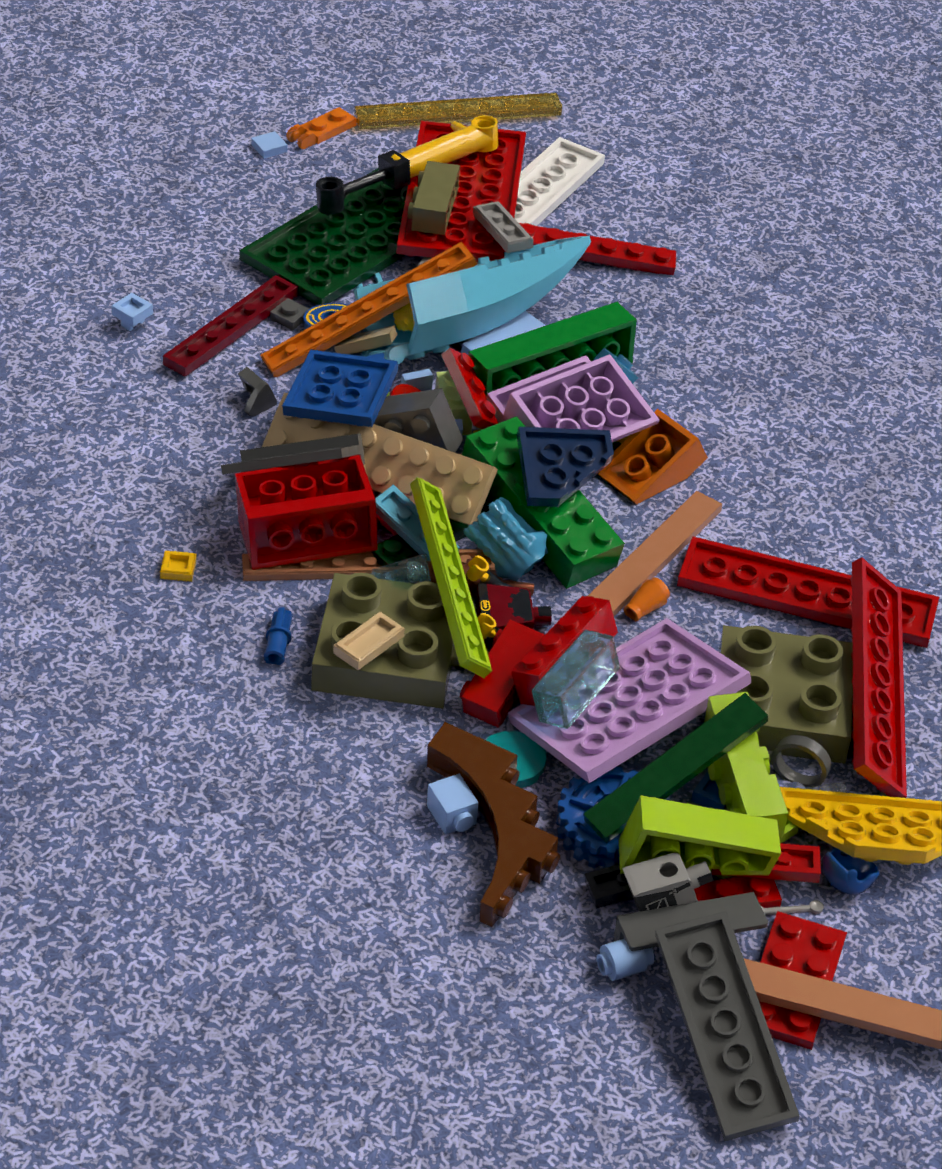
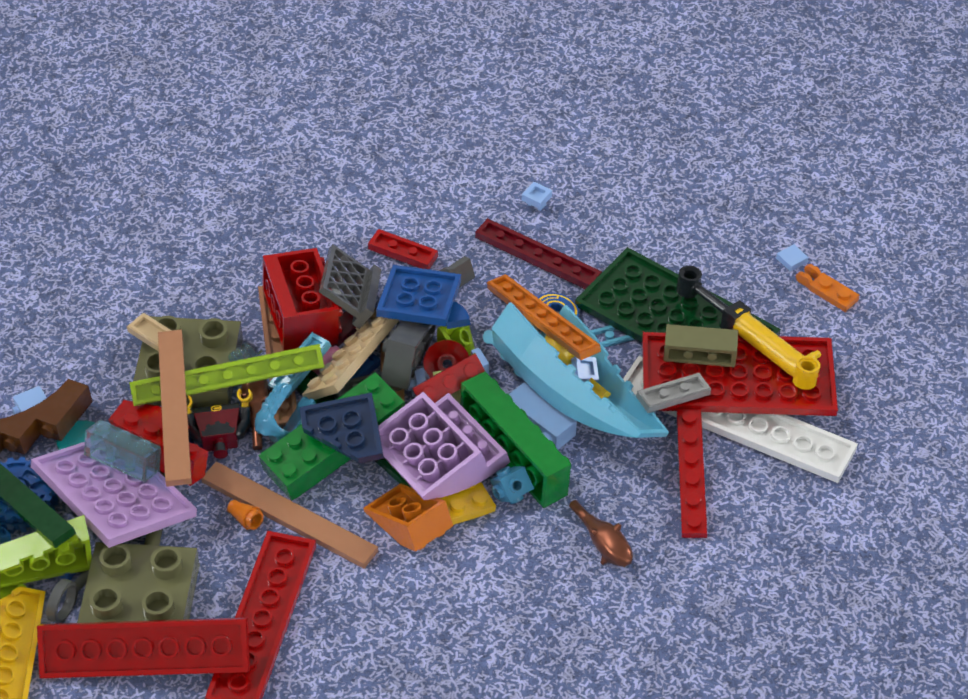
camera: 90 degrees right, 5 degrees up
(178, 566) = (265, 249): yellow tile -> none
(200, 436) = (403, 249): none -> red plate
(278, 636) = (197, 309): blue axle -> none
(288, 314) = (564, 286): dark grey plate -> none
(457, 110) = (883, 376): clear yellow plate -> none
(521, 608) = (174, 408): none -> nougat tile
(686, 316) = (605, 537): none -> copper piece

